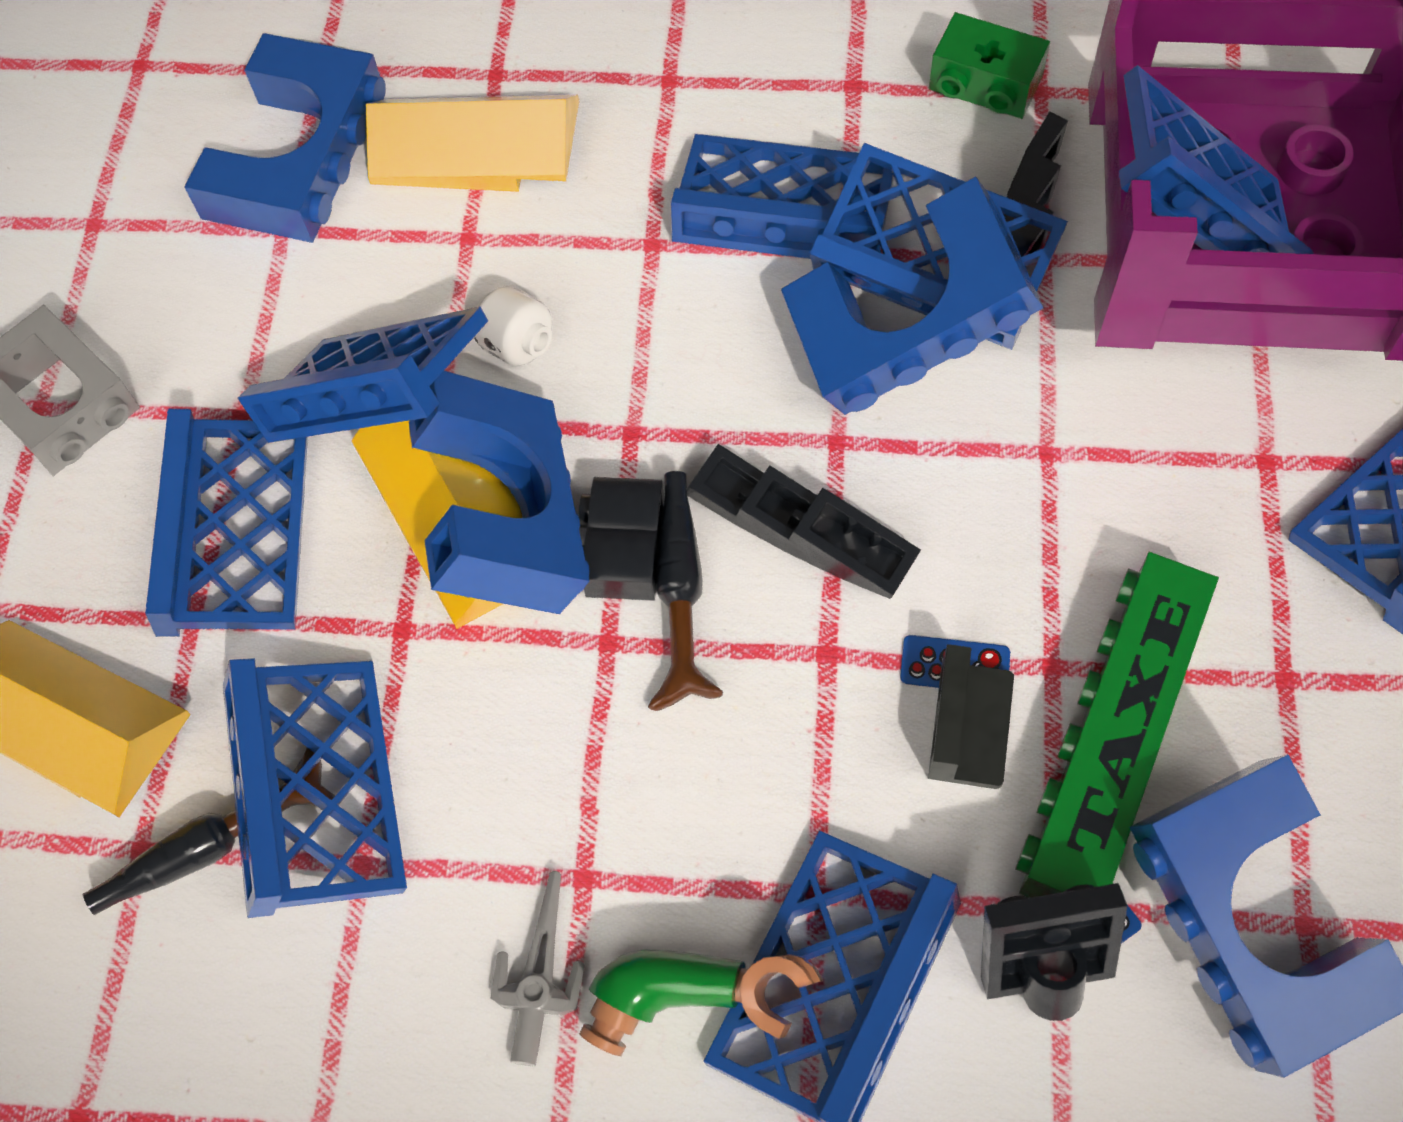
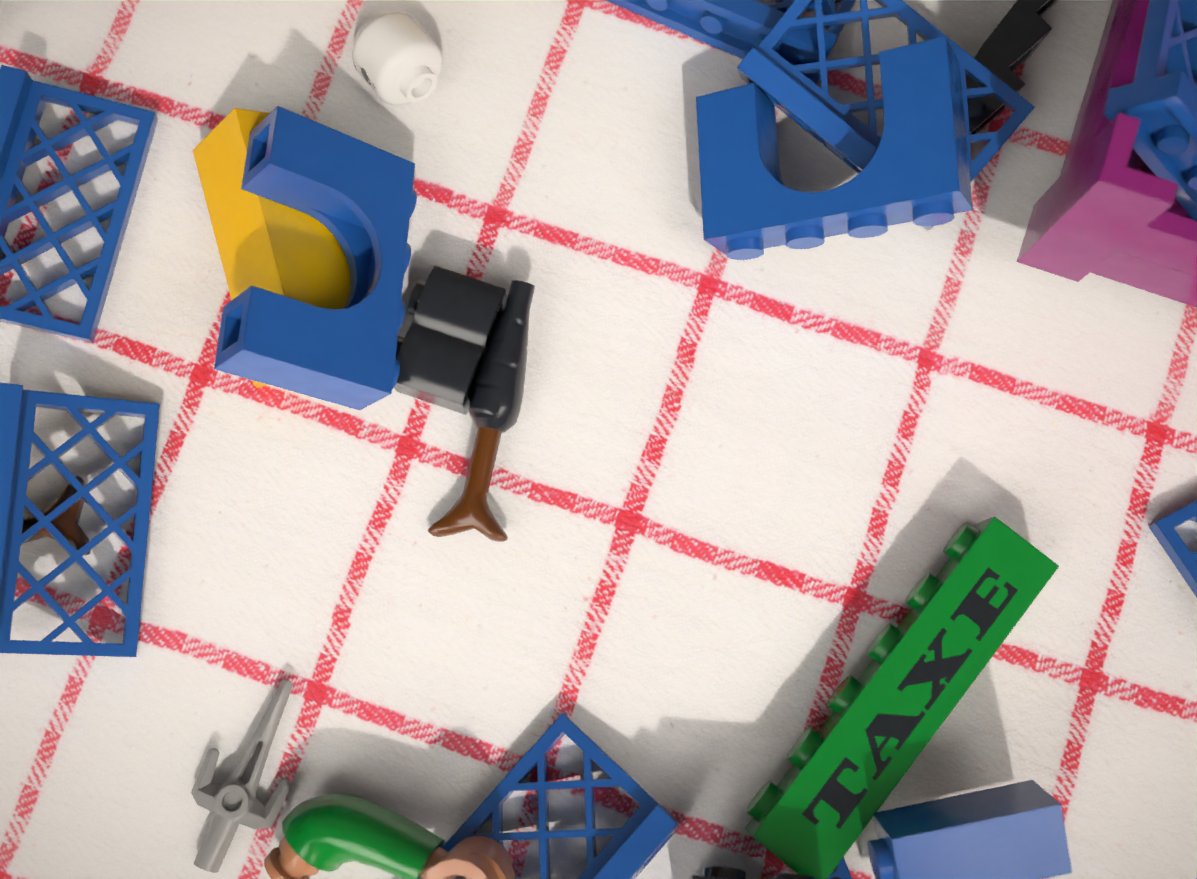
camera: 10 degrees right, 15 degrees up
(363, 378) = (201, 86): blue fence -> none
(804, 524) = (644, 372): black slope -> none
(924, 657) = (756, 569): blue sticker -> none
(971, 722) = (752, 639): pearl dark grey panel -> none

